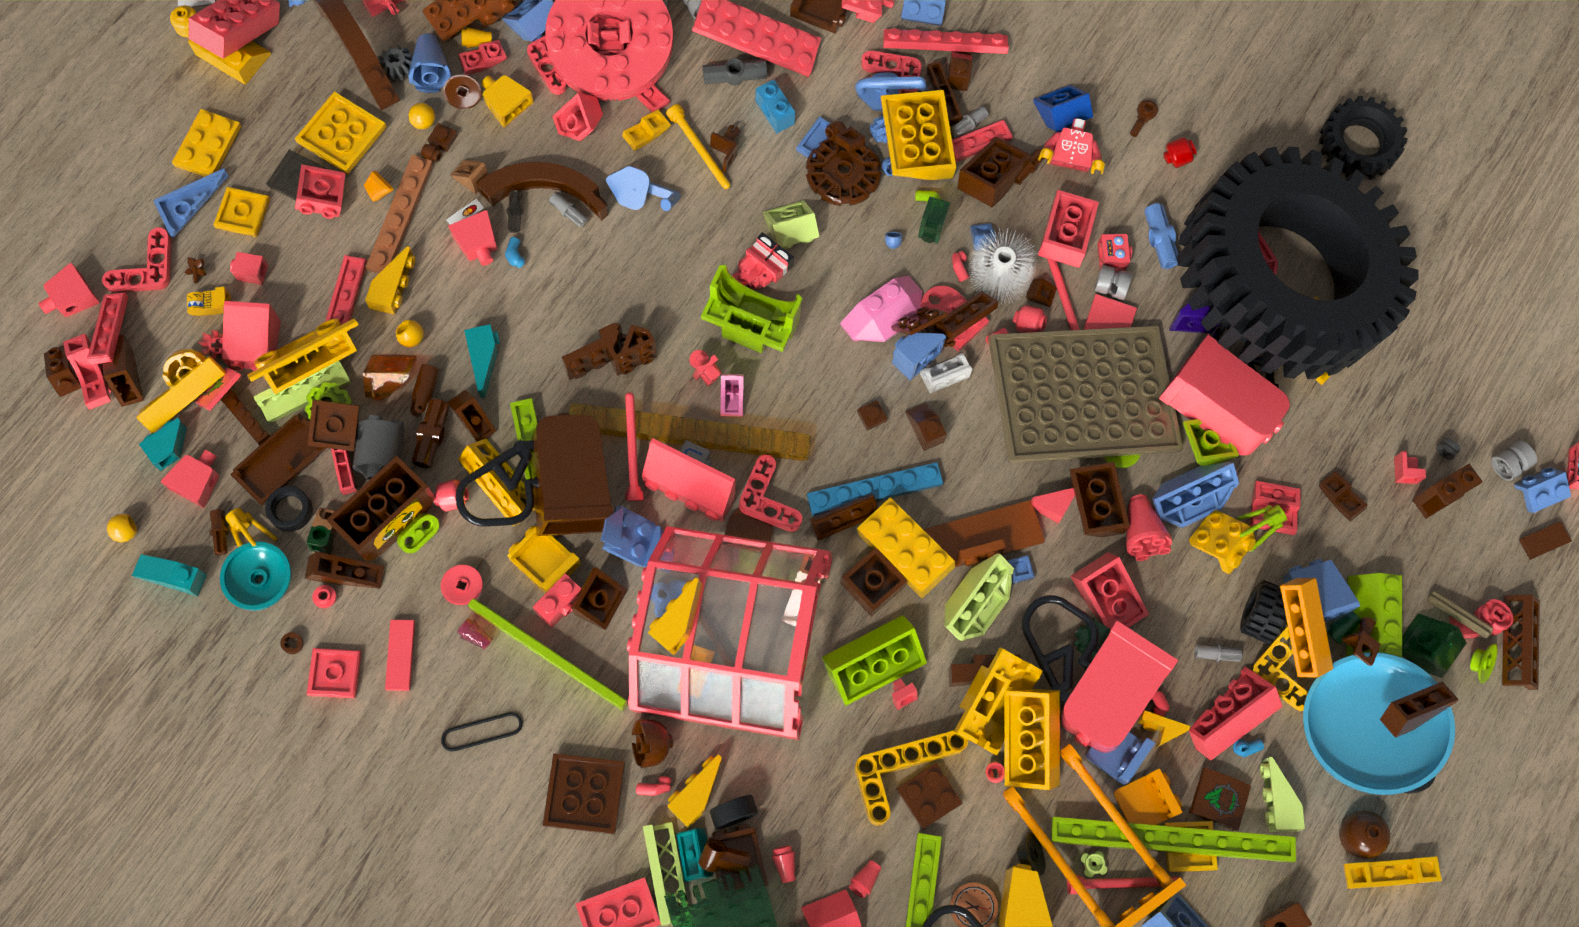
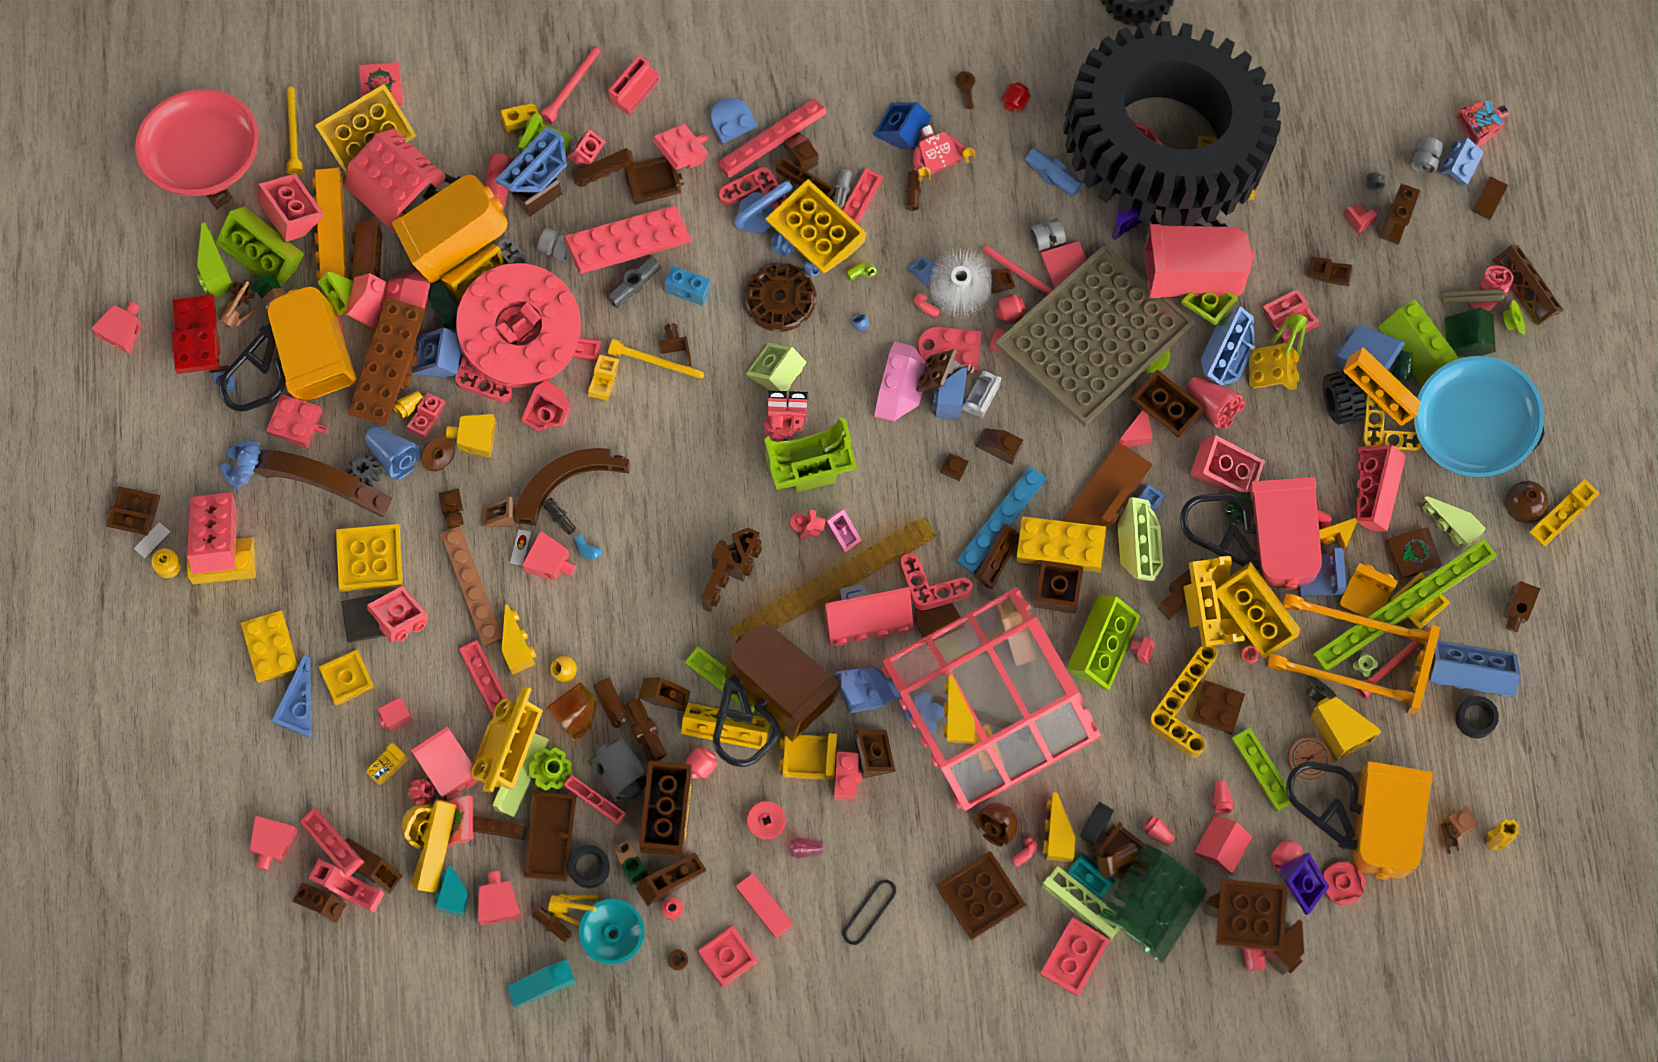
camera: 35 degrees left, 0 degrees up
(121, 528) = (477, 979): yellow piece -> none
(147, 274) = (318, 779): coral beam -> none
(196, 268) = (352, 747): reddish brown plant -> none
(333, 425) = (574, 778): reddish brown plate -> none
(377, 186) = (437, 577): light orange piece -> none
(418, 534) = (701, 811): lime plate -> none
(421, 116) = (421, 497): yellow piece -> none
(483, 354) = (628, 639): teal slope -> none
(548, 654) = (870, 820): lime tile -> none
(568, 209) = (598, 484): light grey axle -> none
(632, 185) = (634, 428): piece -> none
(633, 491) = (832, 657): coral piece -> none
(813, 137) = (736, 283): medium blue tile -> none
(847, 138) = (765, 270): reddish brown plate -> none
(933, 220) = (881, 286): clear green brick -> none
(967, 315) = (966, 339): reddish brown plate -> none
(992, 171) = (892, 214): reddish brown slope -> none
(1068, 228) = (984, 218): coral brick -> none
(1114, 251) = (1029, 210): coral head -> none
(1218, 653) = (1333, 451): light grey axle -> none
(1245, 749) = (1403, 505): dark azure arm -> none
(1363, 641) = (1424, 366): reddish brown bracket -> none
(1417, 708) = (1497, 386): reddish brown slope -> none

